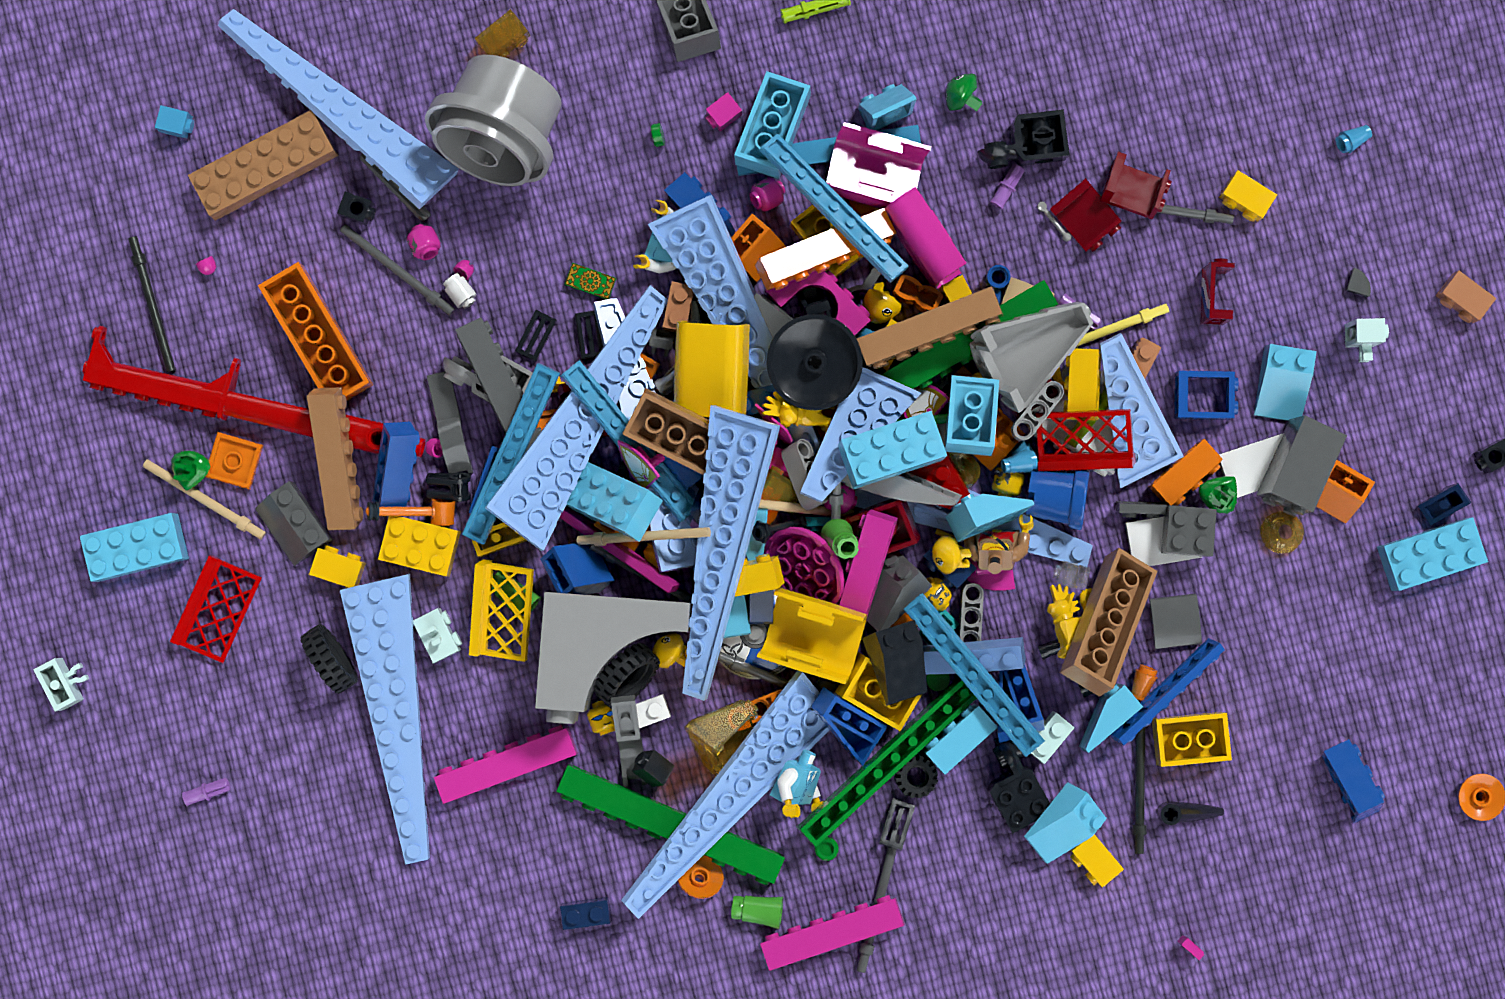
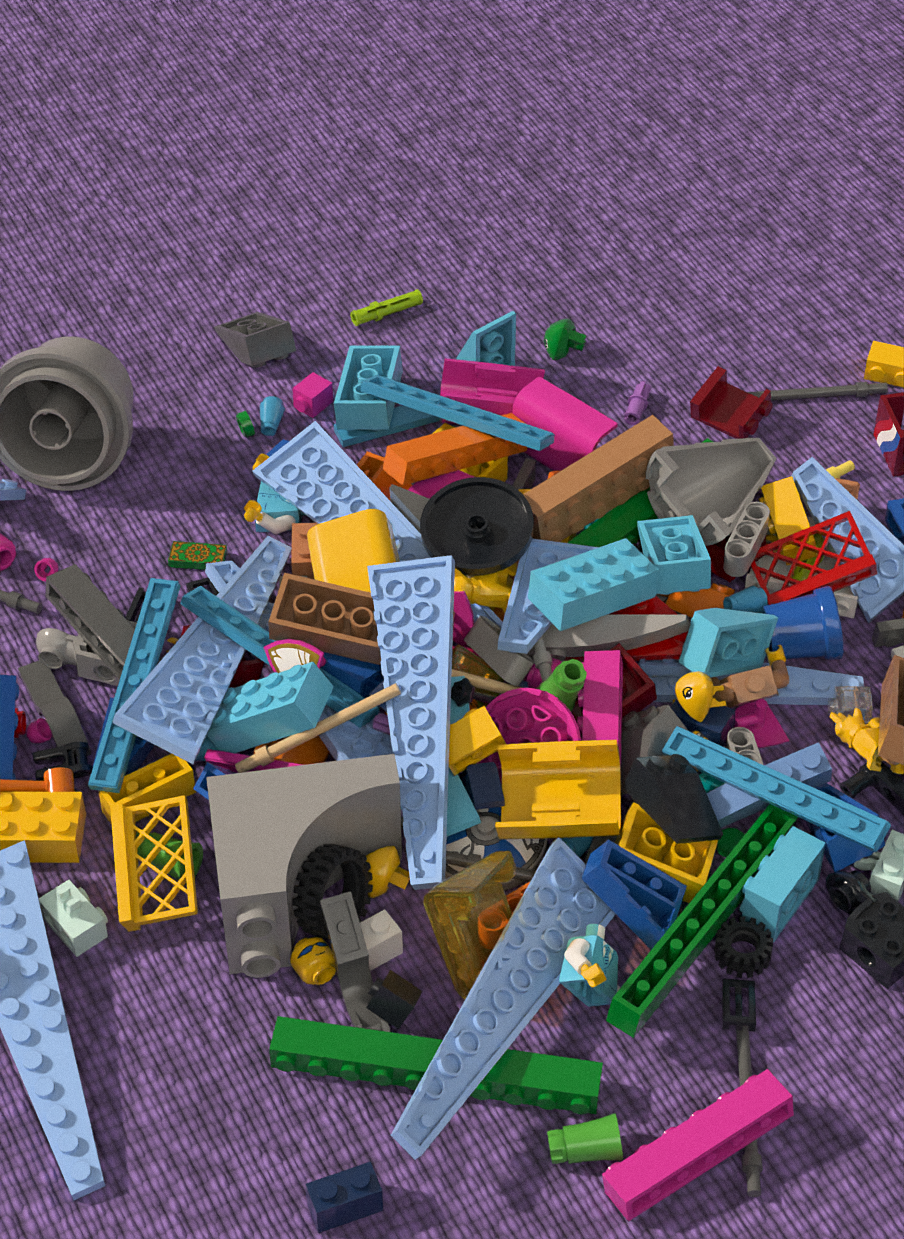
camera: 10 degrees left, 40 degrees down
(460, 291) = (36, 583): white brick -> none
(505, 765) = (190, 1044): dark pink brick -> none
(682, 128) = (271, 414): none -> dark azure cone
(708, 872) = (493, 1118): orange dish -> none
(767, 194) = (377, 442): dark pink head -> none
(827, 849) = (655, 1056): green tile -> none
(1033, 139) = (649, 355): black brick -> none
(1042, 207) = (681, 415): light grey hinge -> none
(1135, 189) = (777, 381): dark red panel -> none

